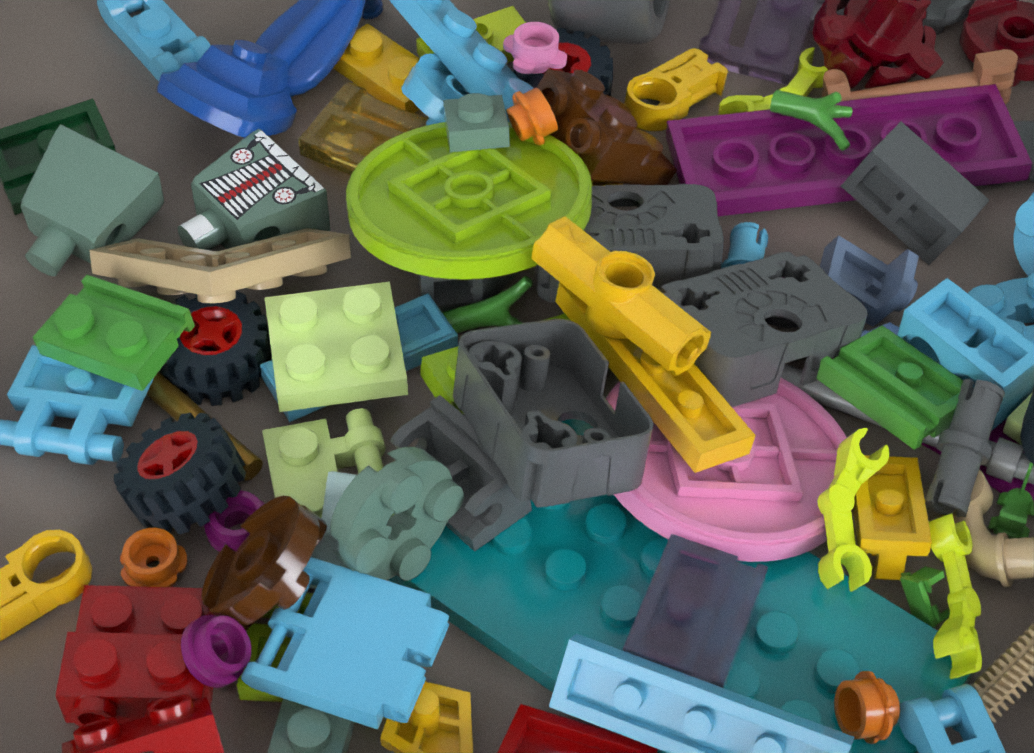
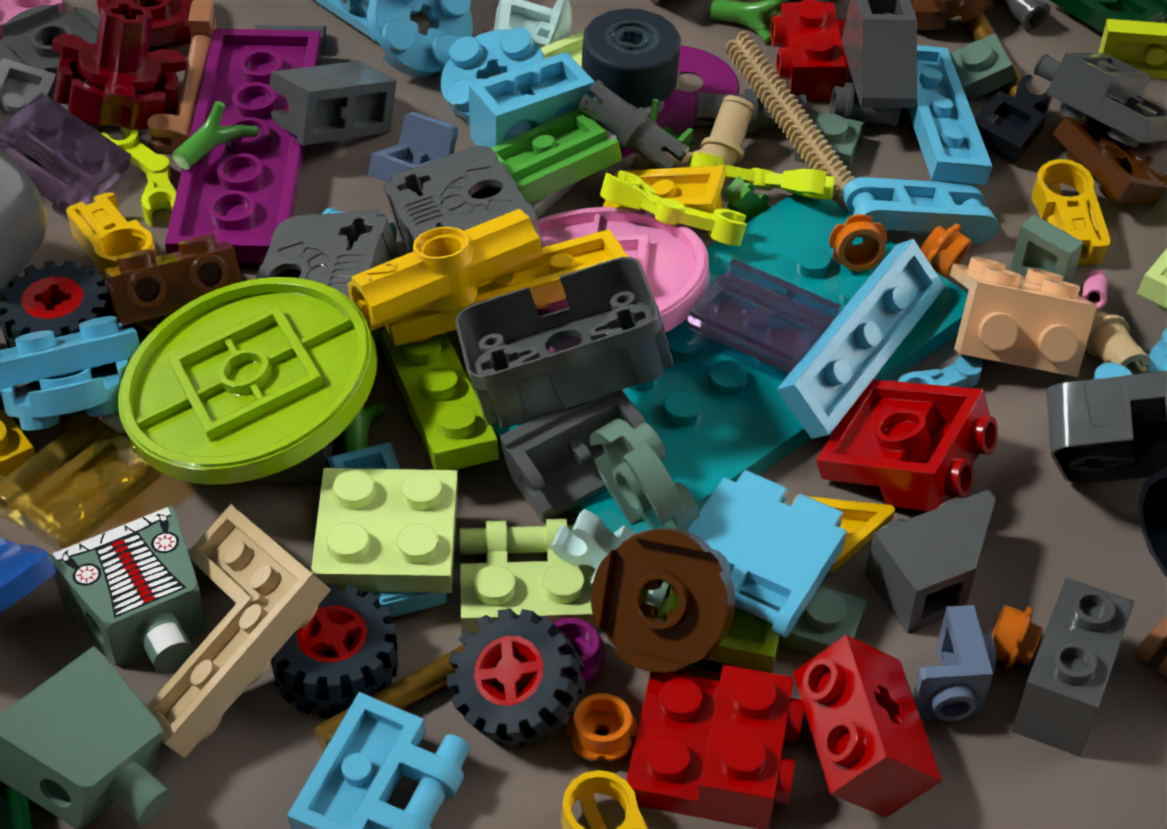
camera: 80 degrees left, 5 degrees down
(114, 332) = (313, 716): bright green plate -> none
(215, 650) = (754, 648): magenta plate -> none
(476, 122) = (149, 353): sand green plate -> none
(531, 116) = (170, 300): orange plate -> none
(535, 48) = (40, 303): bright pink plate -> none

